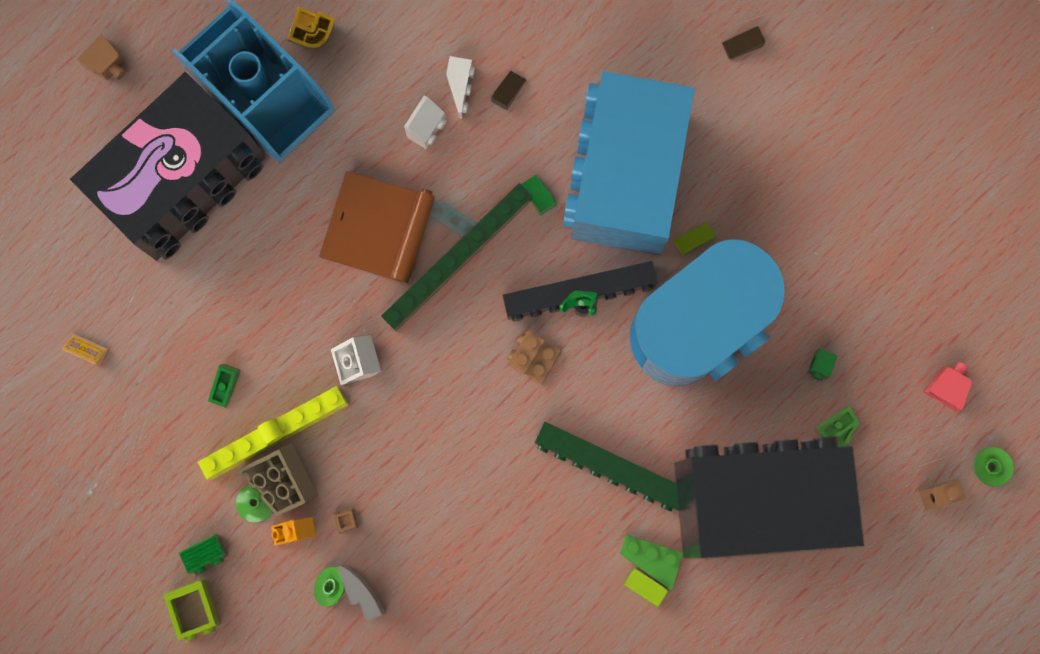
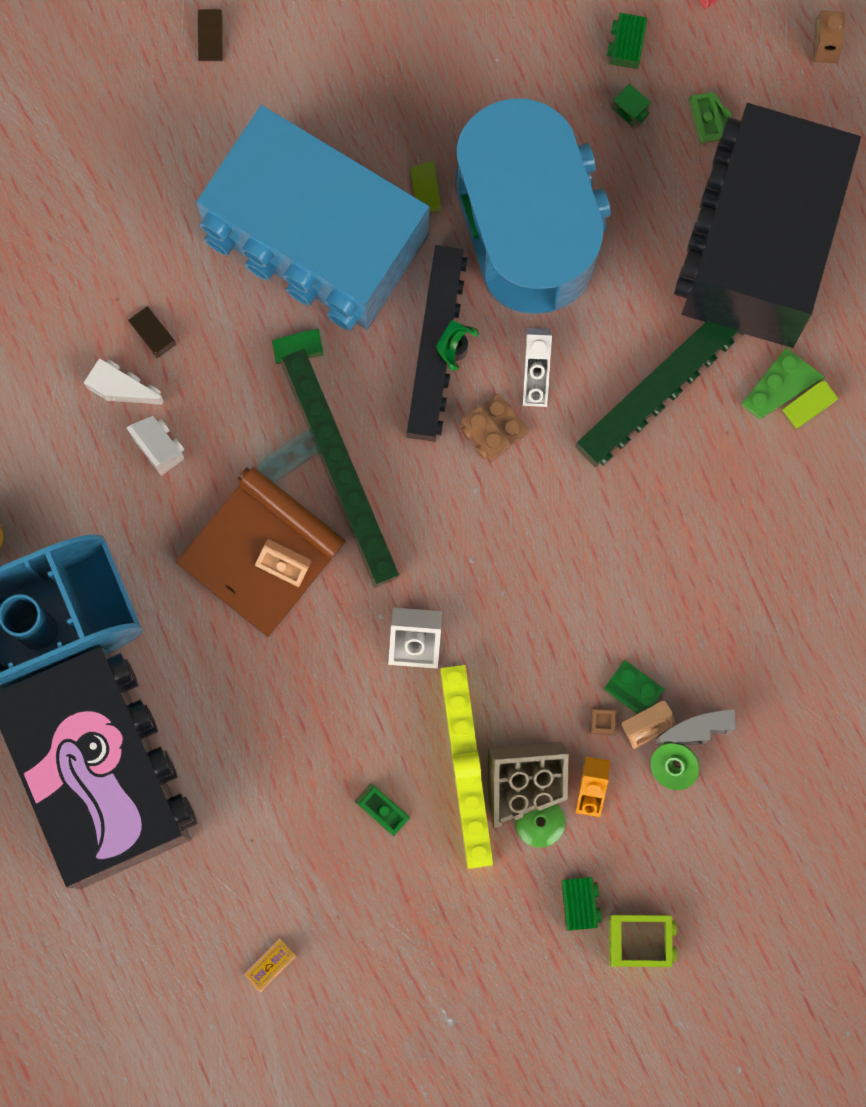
camera: 75 degrees left, 0 degrees up
(354, 555) = (649, 724): none -> light nougat slope
(375, 245) = (283, 562): none -> light nougat slope
(378, 534) = (633, 688): none -> green plate
(592, 370) = (537, 367): none -> white slope
(871, 343) = (628, 40): none -> green brick

